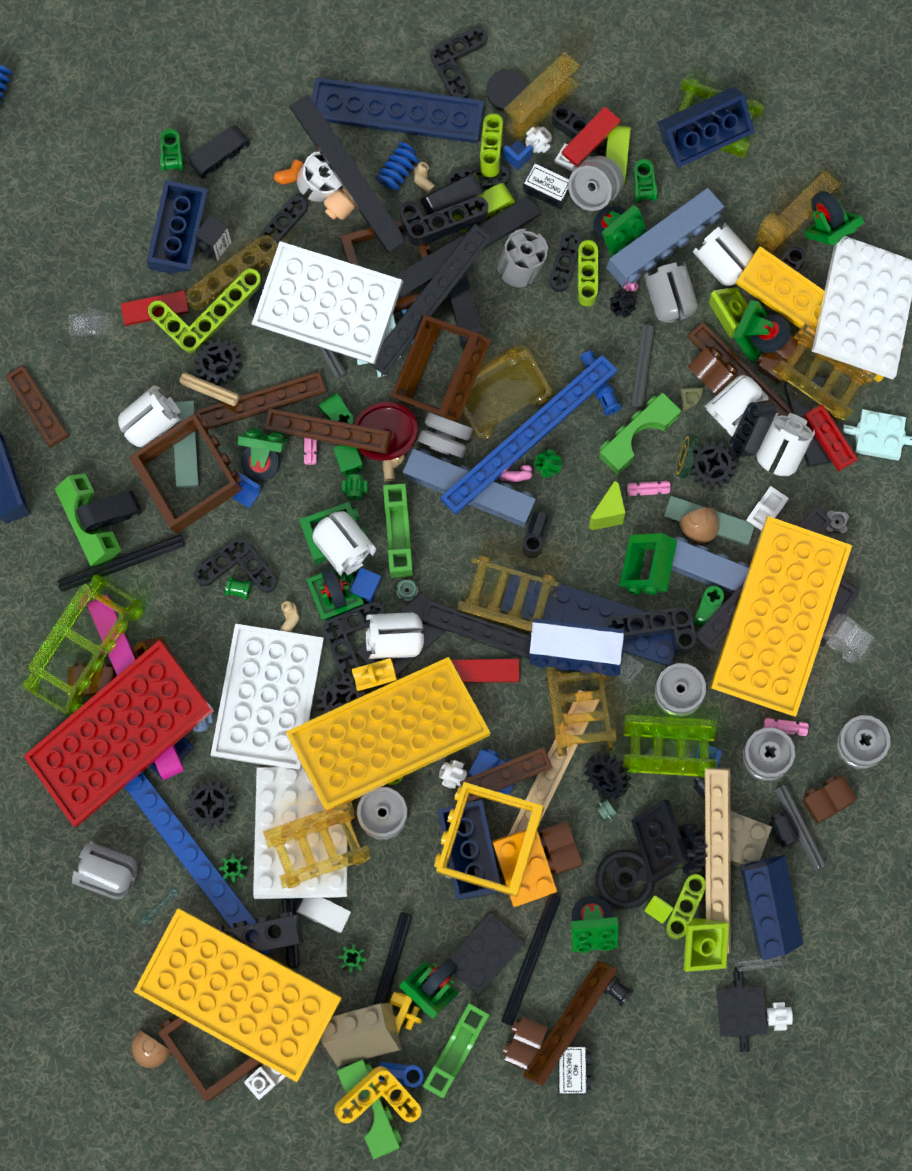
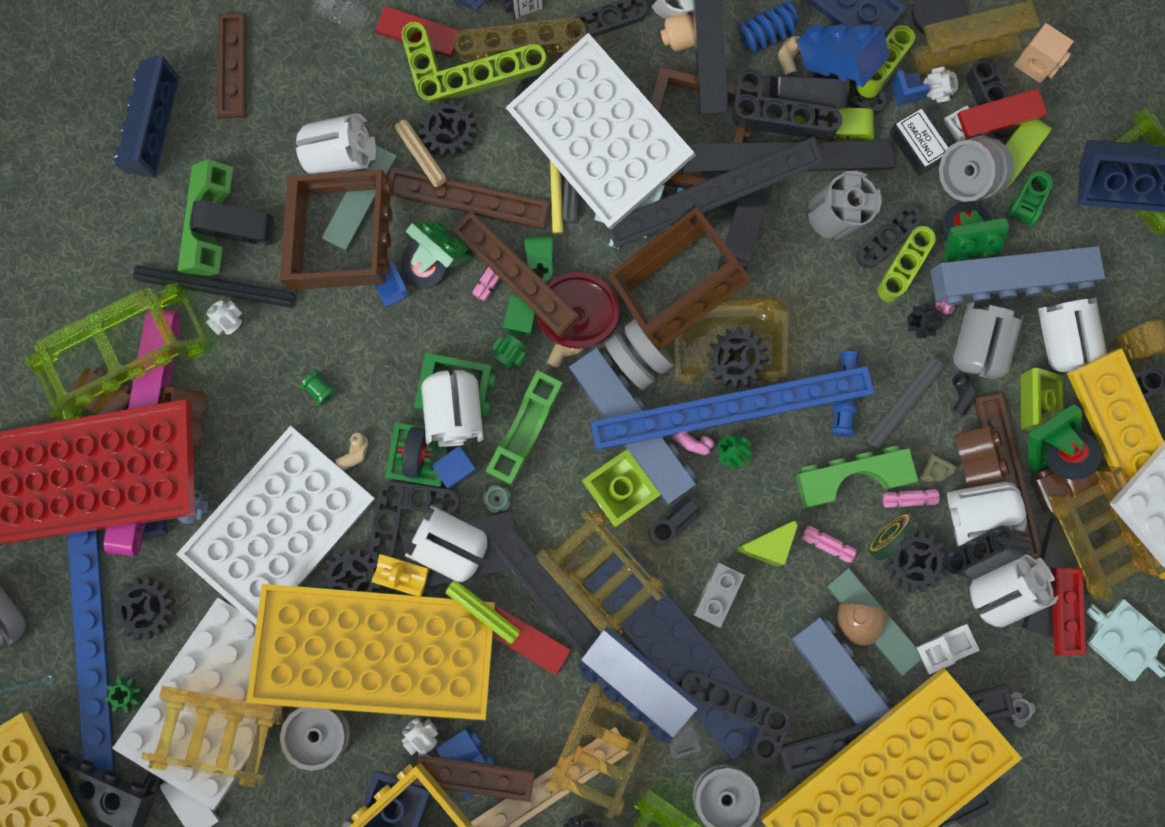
camera: 30 degrees right, 5 degrees up
(143, 578) = (224, 317): none -> white gear
(241, 559) = (341, 358): black beam -> none
(322, 366) = (556, 200): none -> light yellow bar
(445, 665) = (483, 612): none -> lime axle
(460, 155) = (844, 51): none -> blue wedge
(487, 530) = (621, 488): none -> lime slope
(513, 392) = (730, 365): none -> black gear
(595, 80) = (1044, 54): none -> light nougat brick
(595, 563) = (718, 595): none -> light grey brick
(661, 565) = (791, 645): green window -> none
(679, 335) = (966, 392): none -> black arm
(684, 426) = (910, 498): none -> bright pink axle
(706, 607) = (811, 720): green piece -> none

